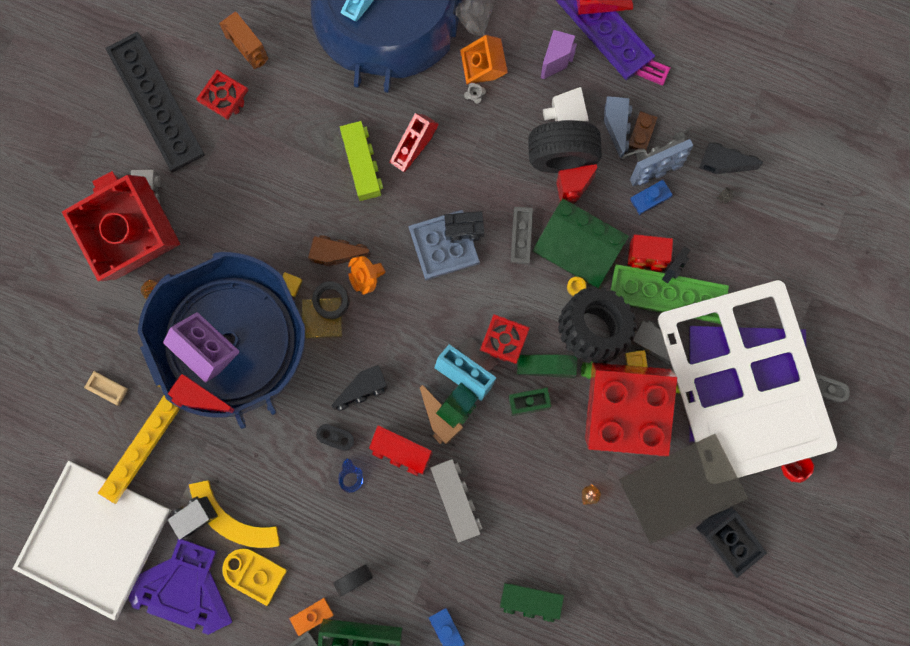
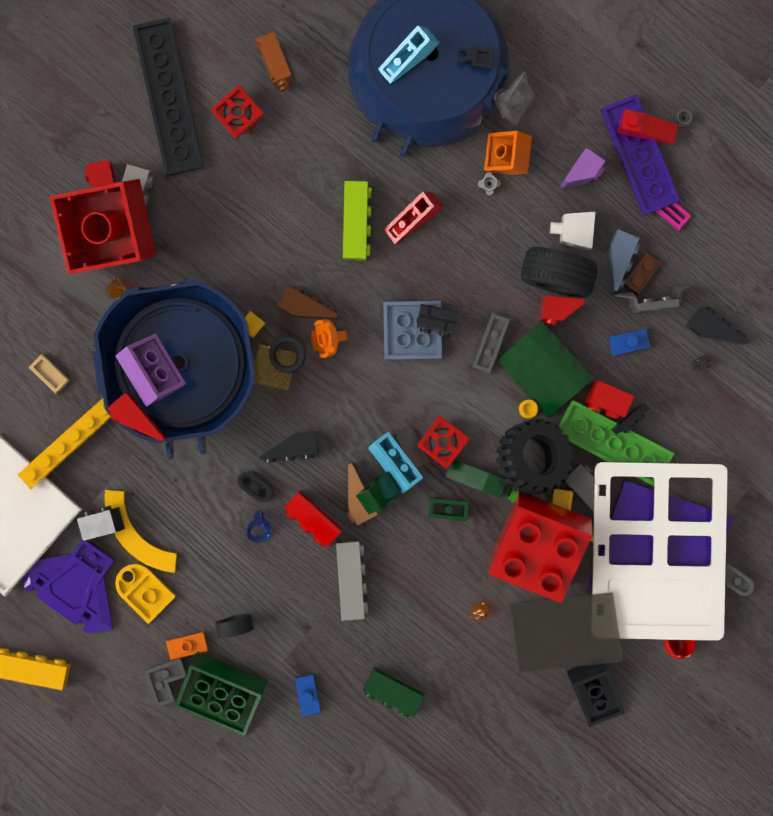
camera: 10 degrees right, 10 degrees up
(660, 163) = (648, 316): sand blue plate -> none

